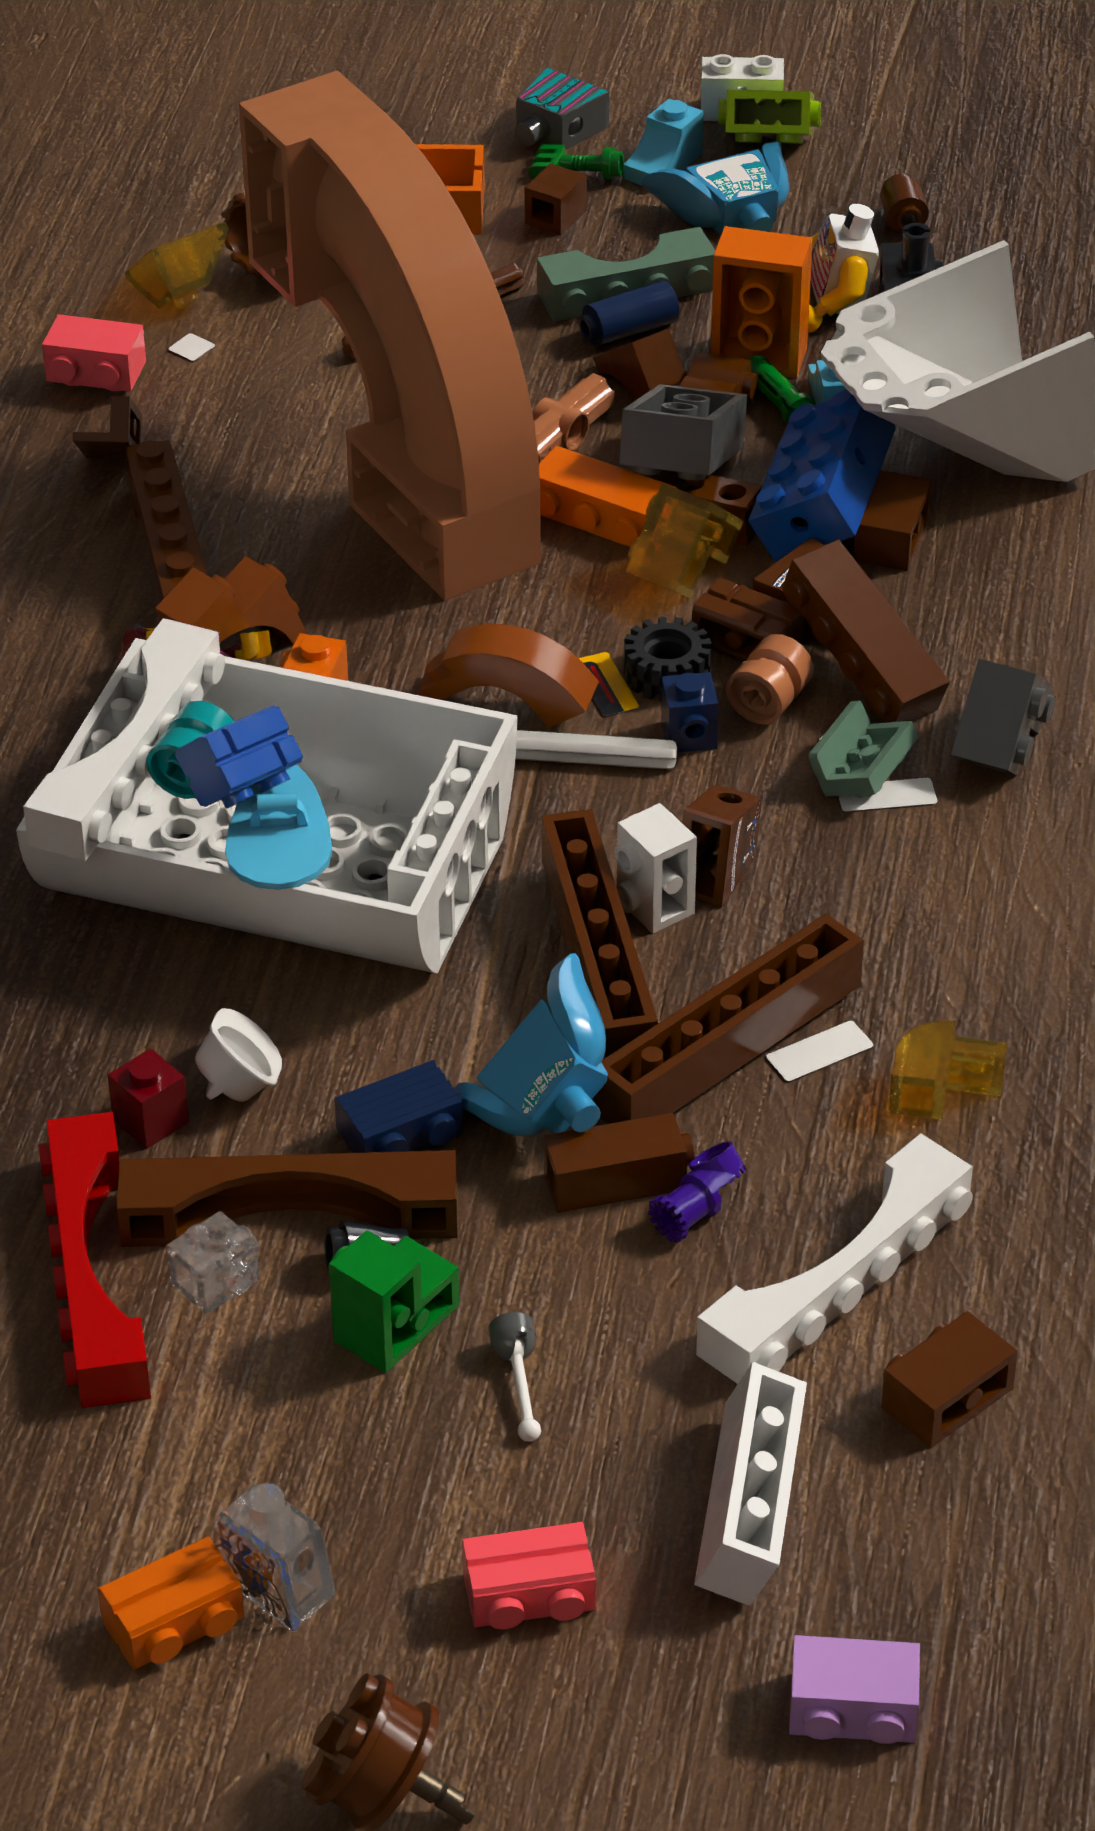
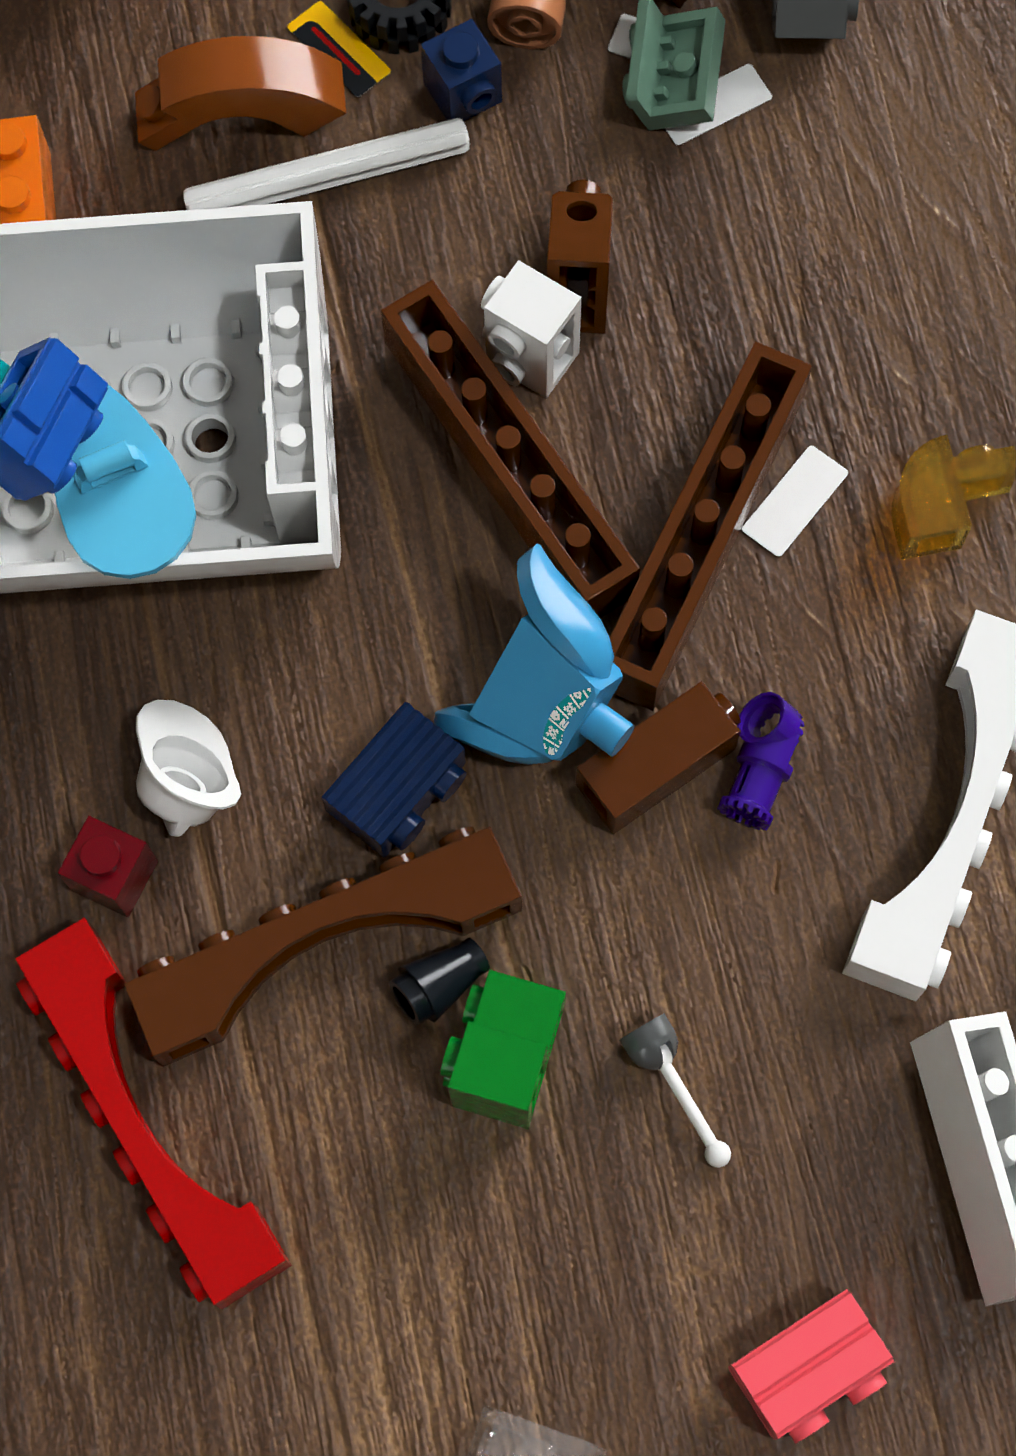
camera: 20 degrees left, 30 degrees up
(214, 1262) = (296, 1098): clear brick -> none

